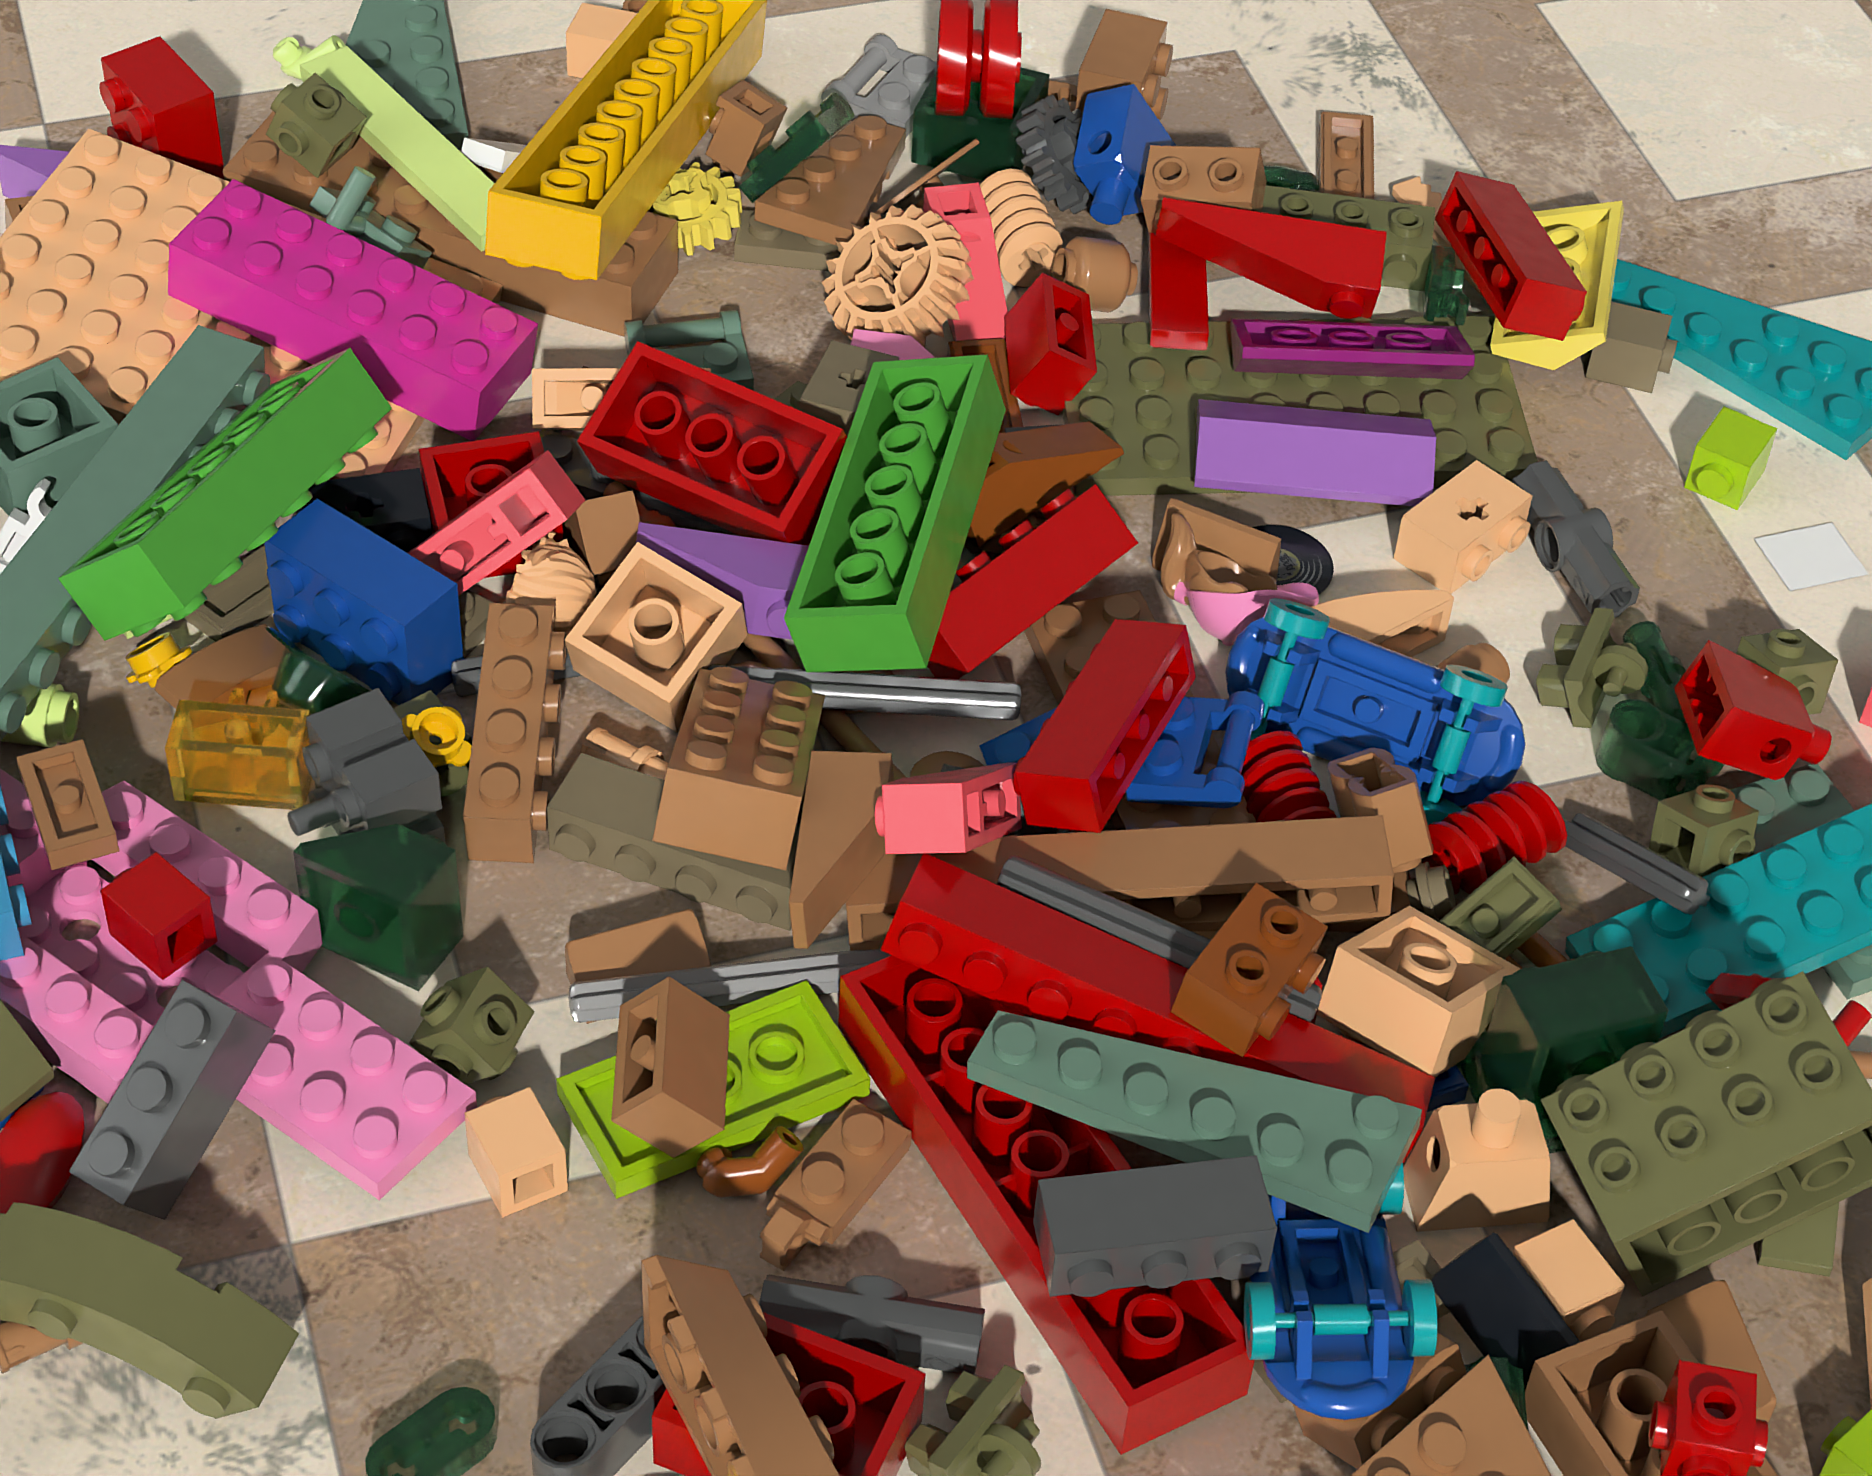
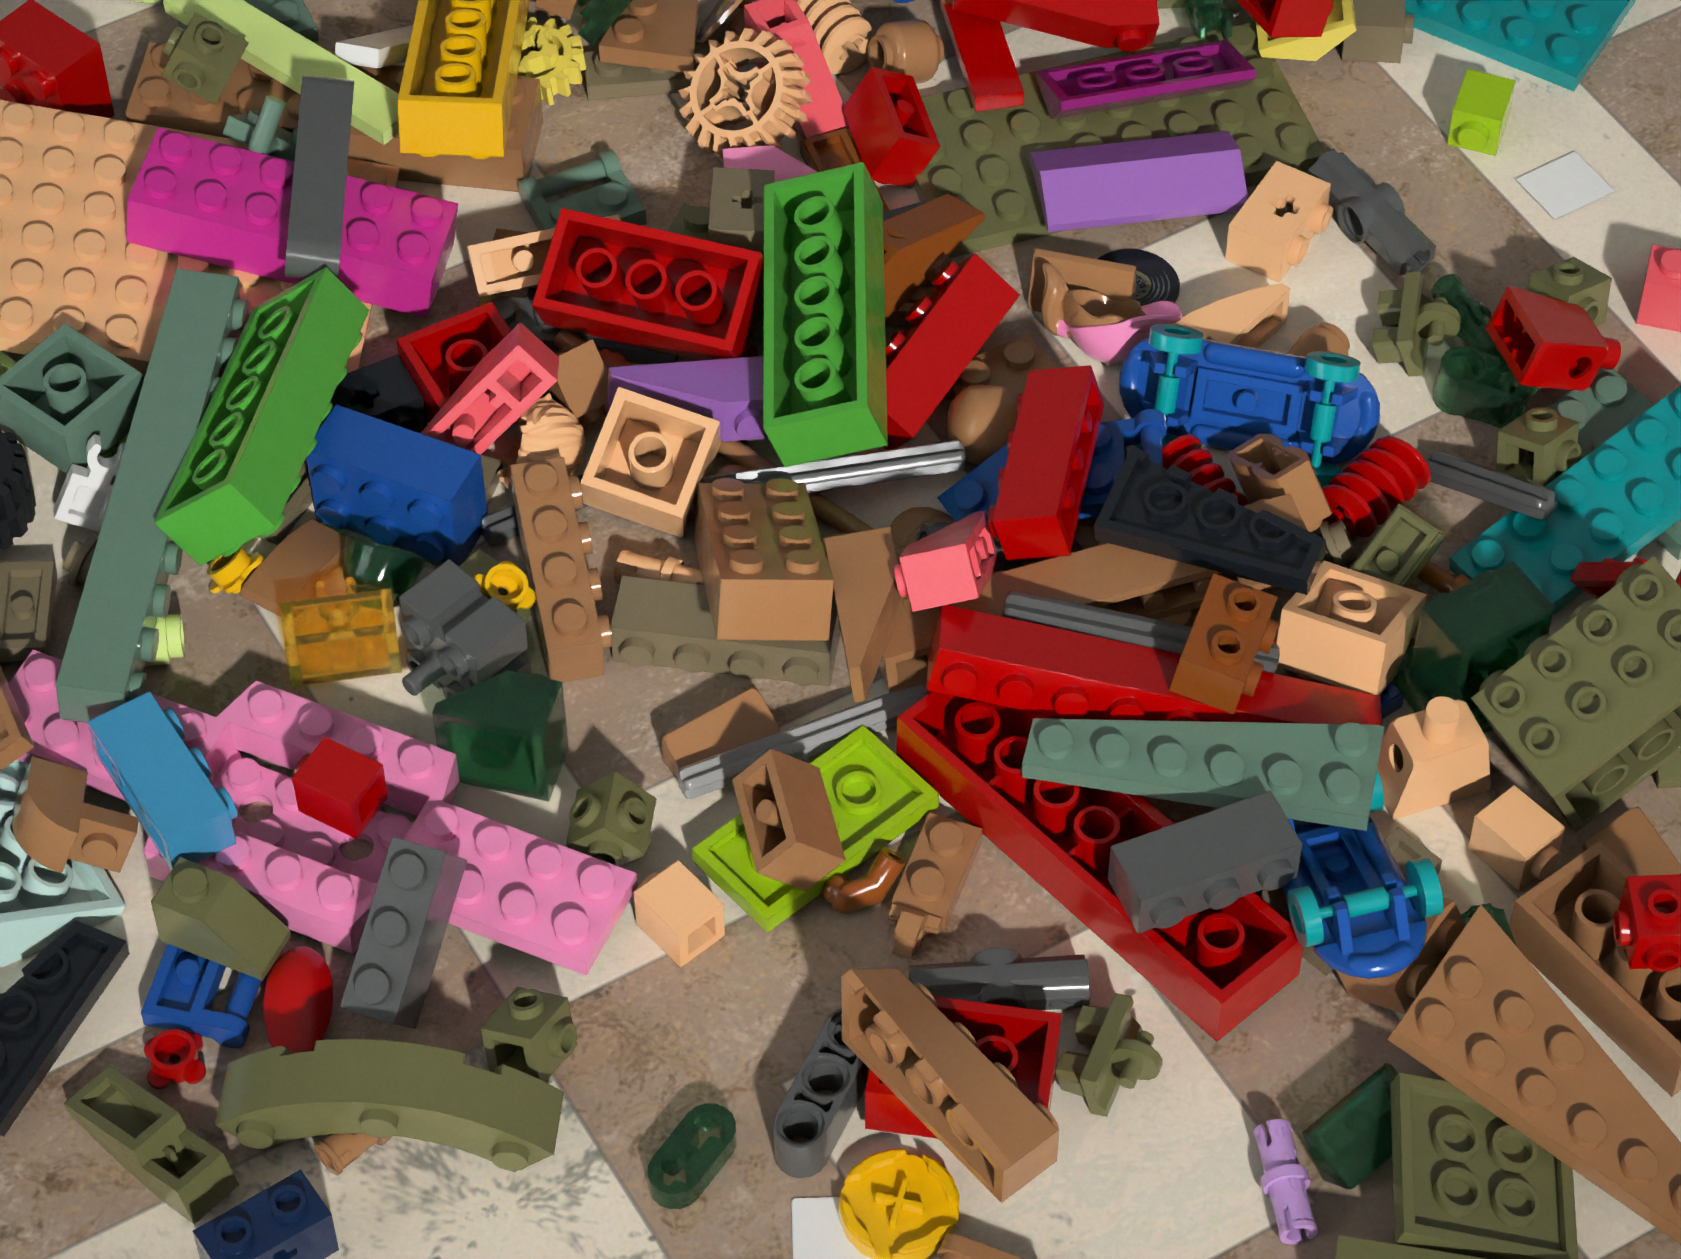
camera: 10 degrees left, 5 degrees up
(67, 804) = (226, 711): medium nougat plate -> none
(283, 1254) = (530, 1033): none -> olive brick
(383, 260) = (319, 176): none -> dark grey beam
(1047, 666) = (981, 420): none -> medium nougat hair
(1251, 824) = (1185, 522): none -> black wing
(1501, 1305) = (1477, 864): black slope -> none

